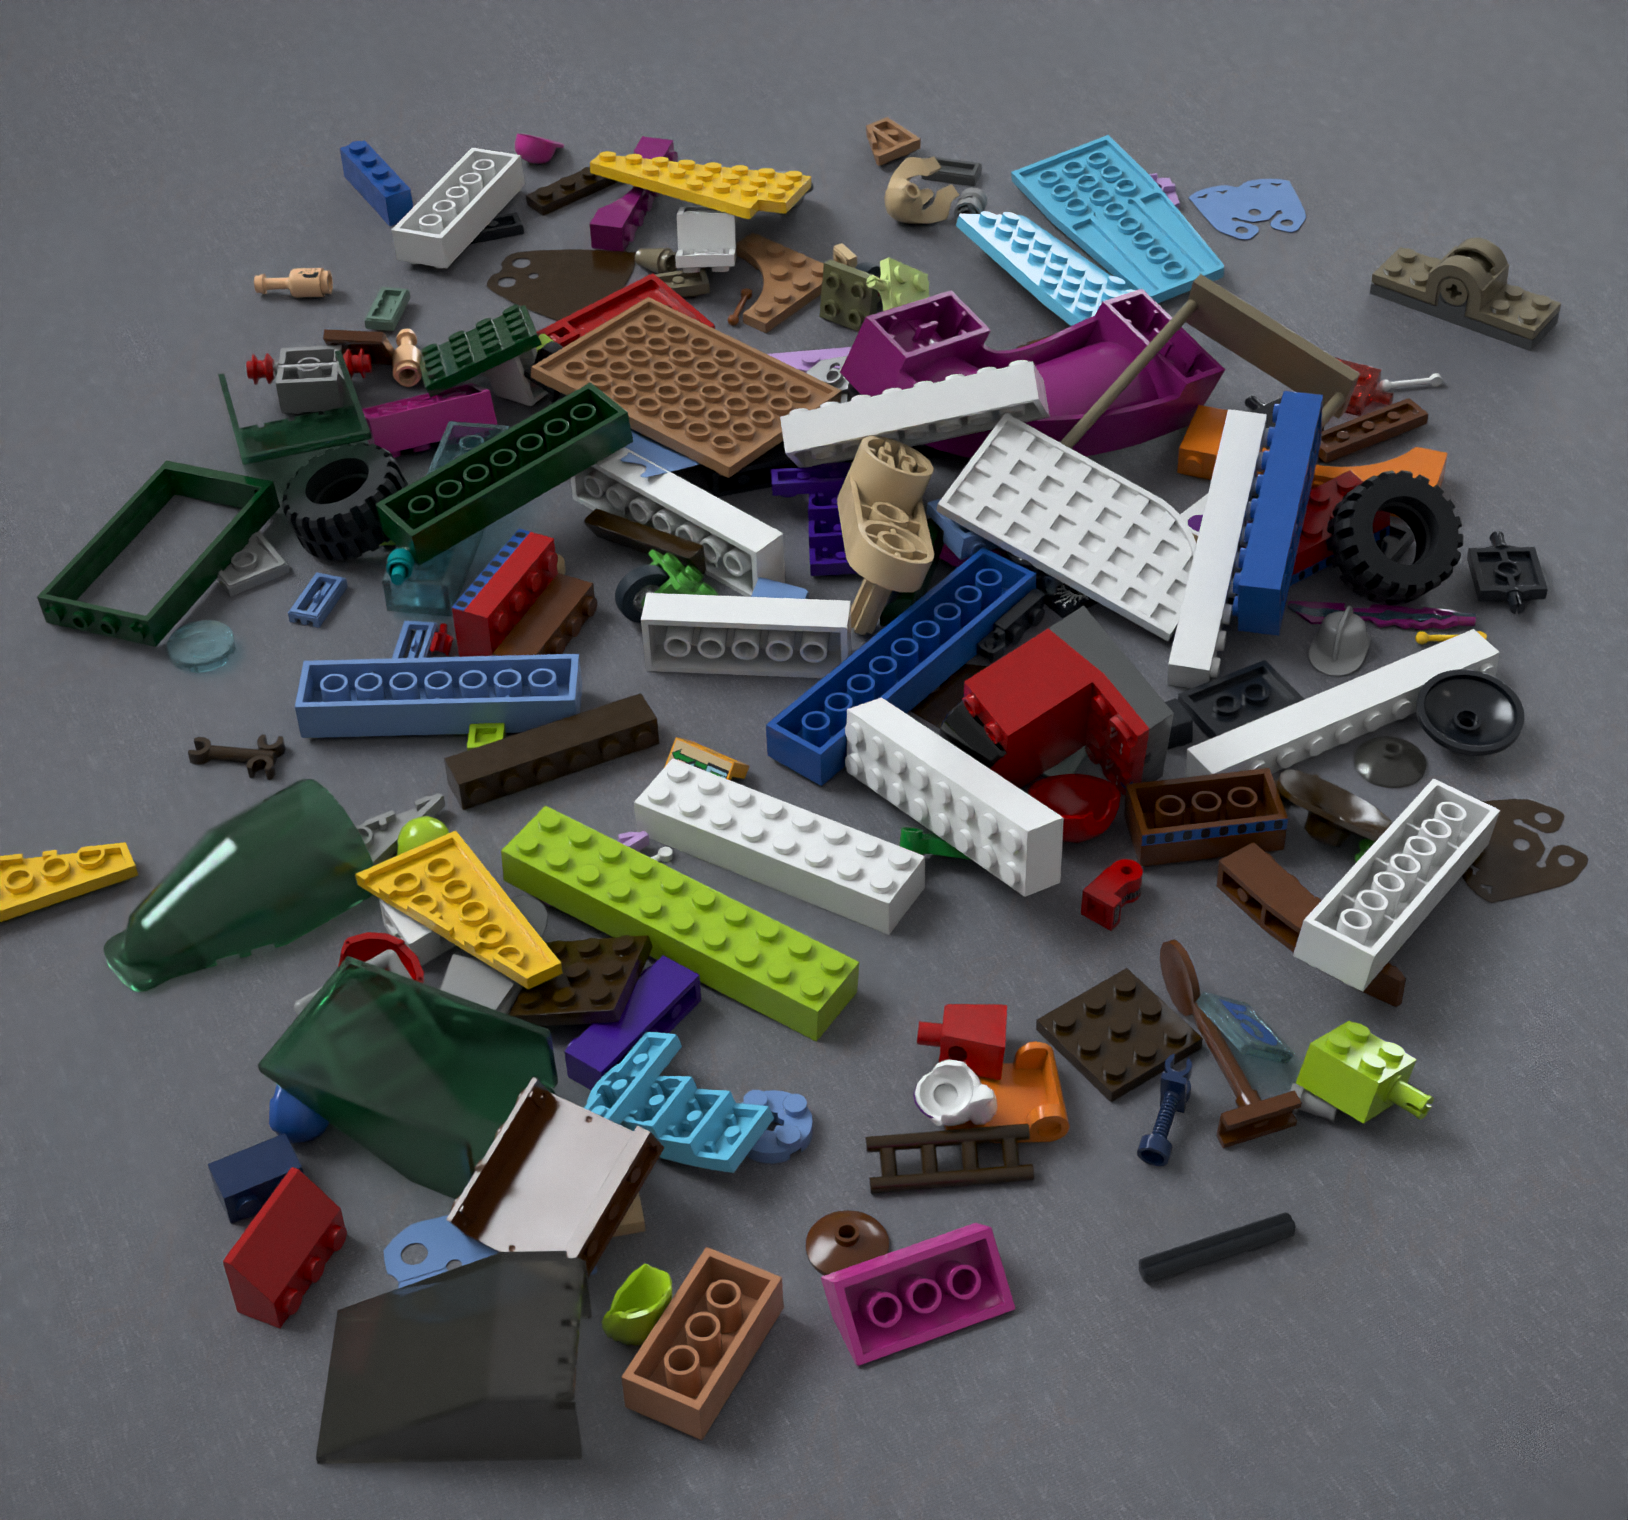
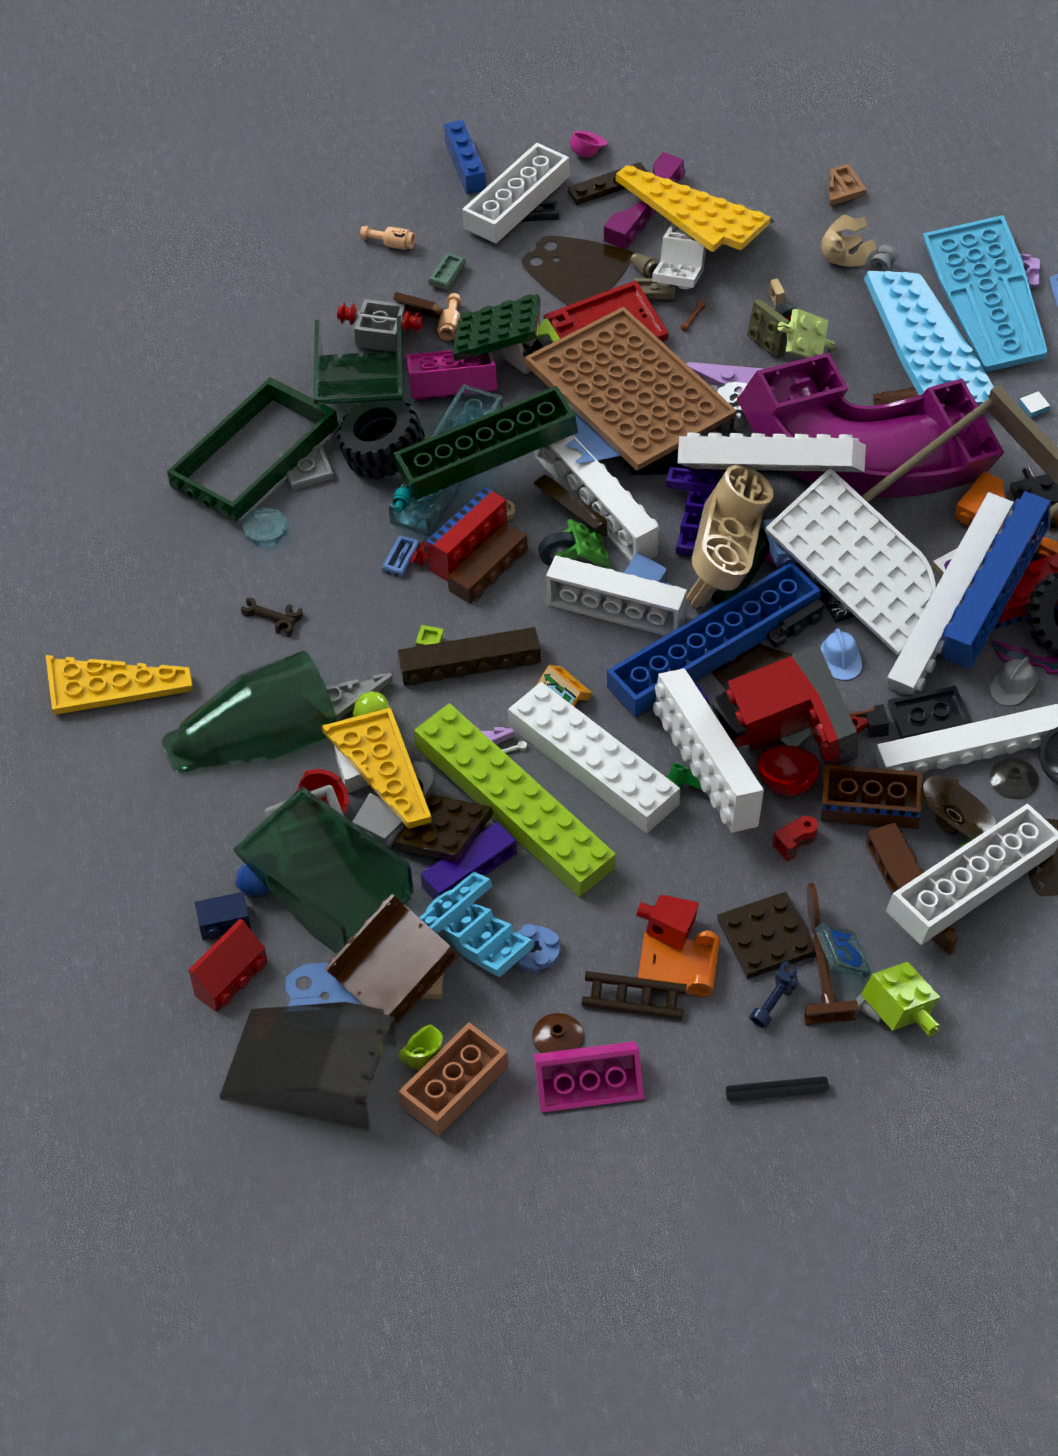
camera: 15 degrees right, 10 degrees up
(323, 600) = (350, 508): medium blue tile -> none
(435, 694) = (406, 599): medium blue brick -> none
(788, 281) = (732, 301): medium nougat plate -> none
(954, 1095) = (646, 957): white hair -> none
(956, 172) = (883, 221): dark grey tile -> none

